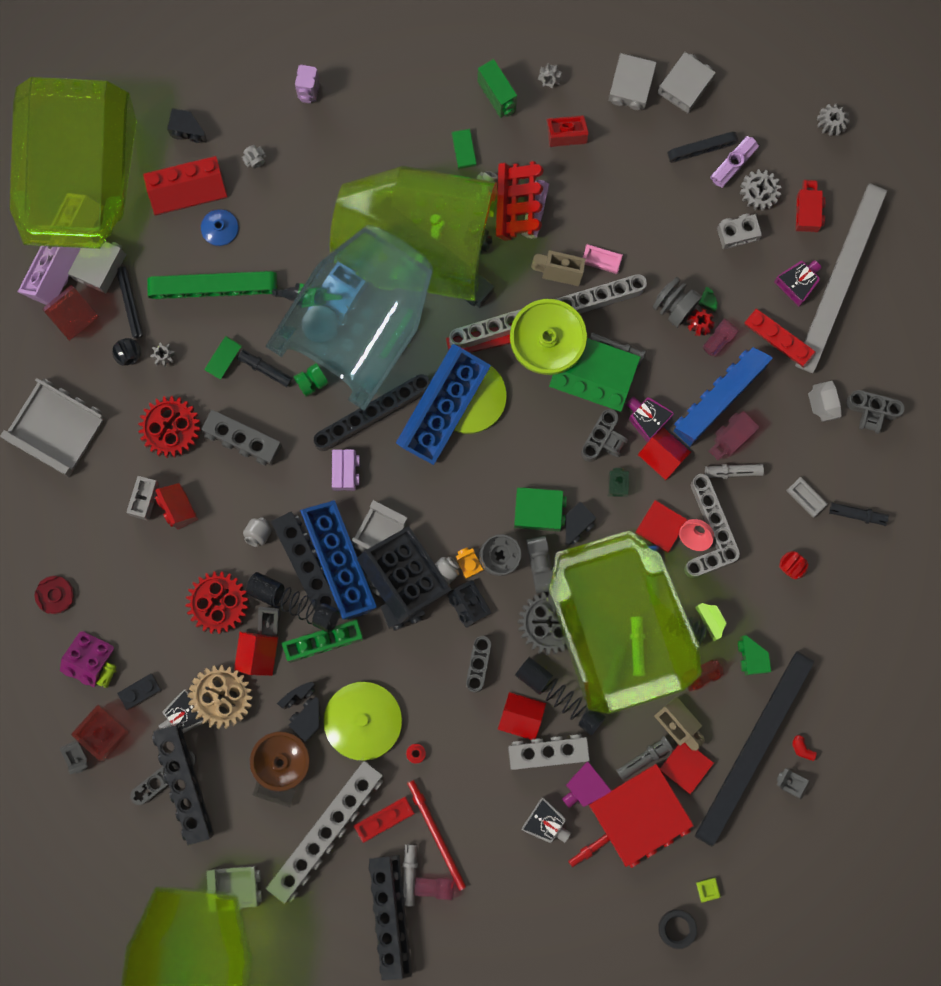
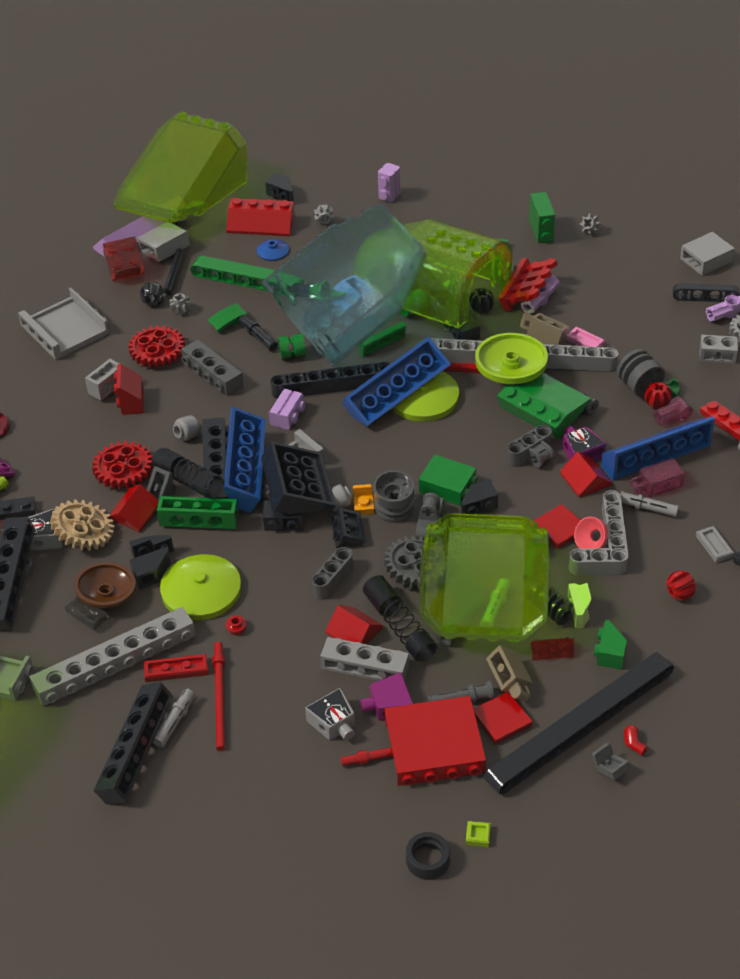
camera: 25 degrees right, 35 degrees down
(438, 888) = (196, 737): clear pink piece -> none
(567, 131) = (589, 259): red slope -> none
(618, 483) = (531, 482): clear green brick -> none
(632, 82) = (659, 242): light grey brick -> none

